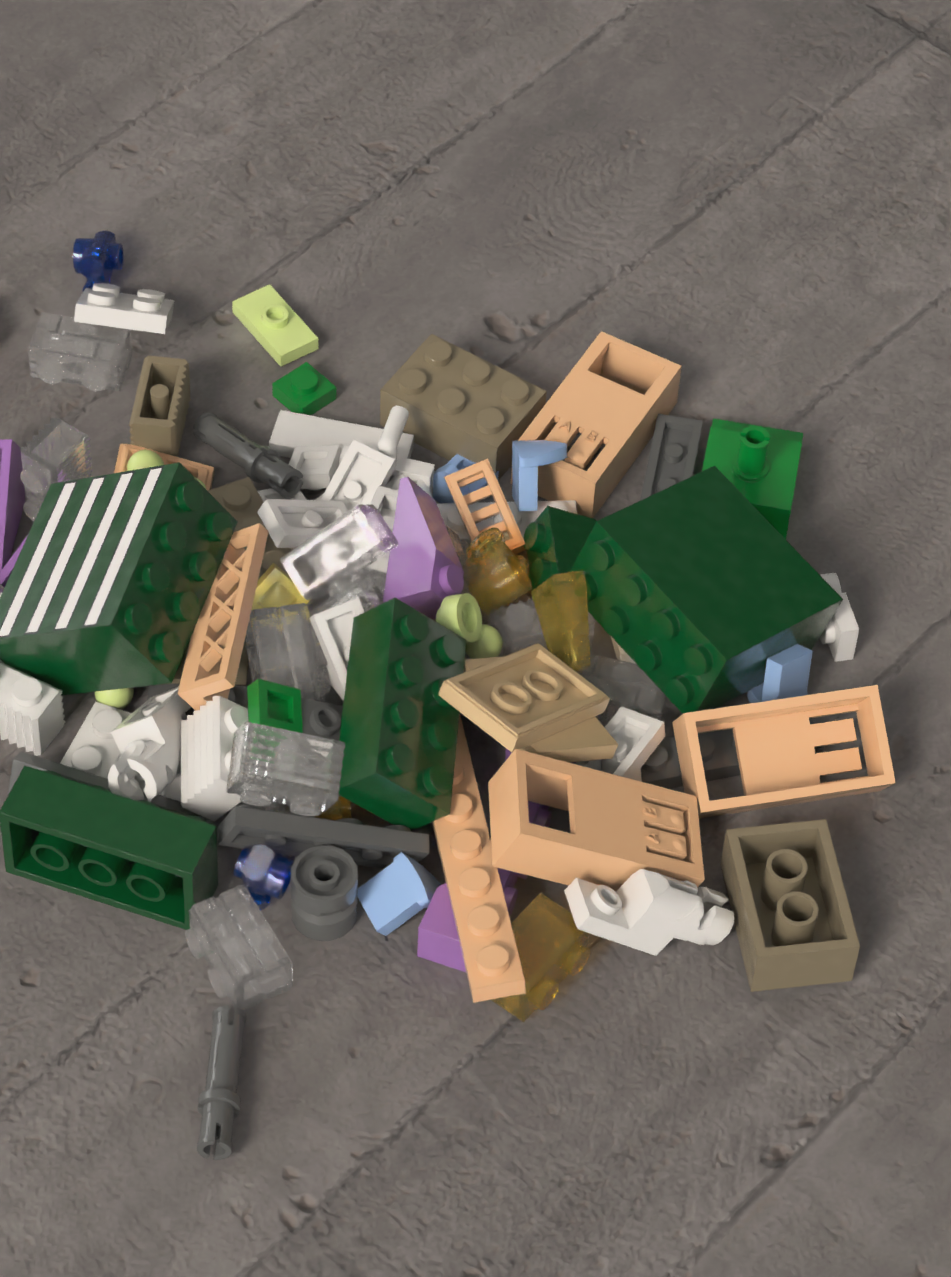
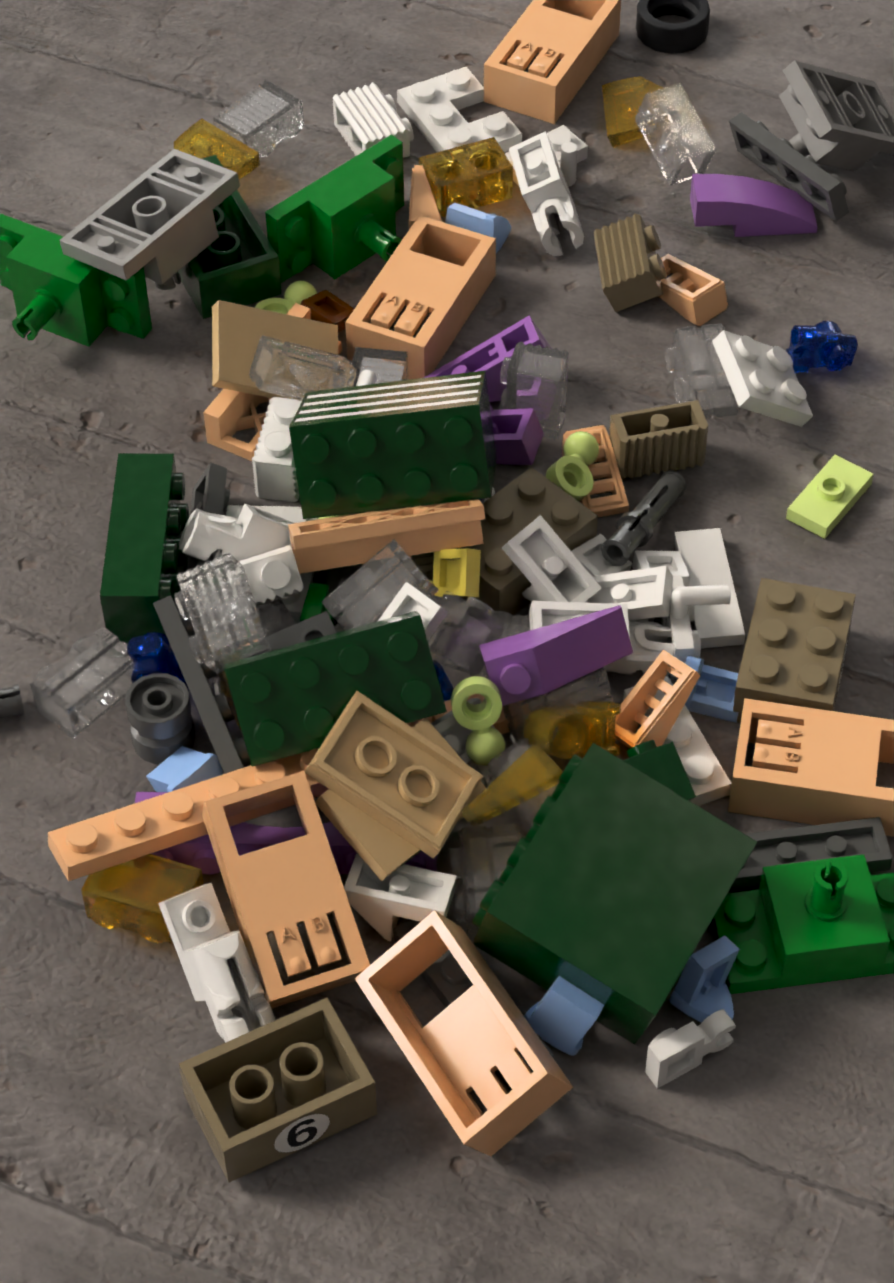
camera: 75 degrees right, 0 degrees up
(275, 705) = (299, 596): green plate -> none
(304, 390) = (760, 541): green plate -> none
(339, 551) = (503, 583): clear brick -> none
(525, 461) = (716, 716): light blue tile -> none

